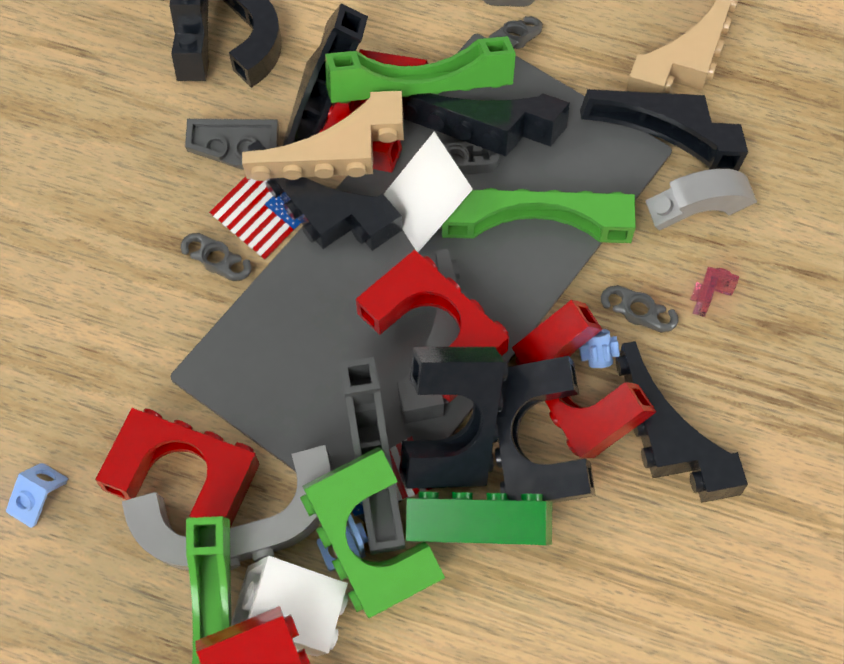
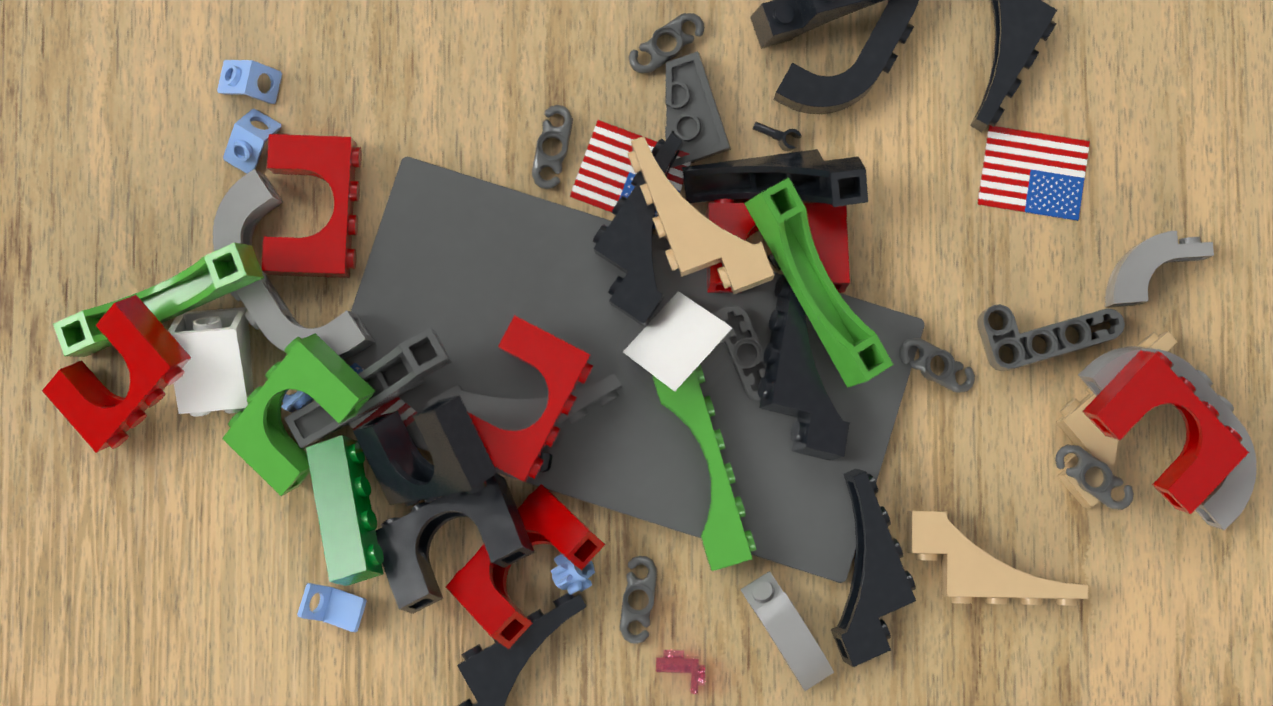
camera: 70 degrees right, 20 degrees up
(94, 510) = (248, 141): none -> light blue bracket
(175, 155) = (660, 57): none -> dark grey piece
(287, 87) = (778, 135): none -> black hand
(569, 567) = (335, 607): none -> light blue bracket

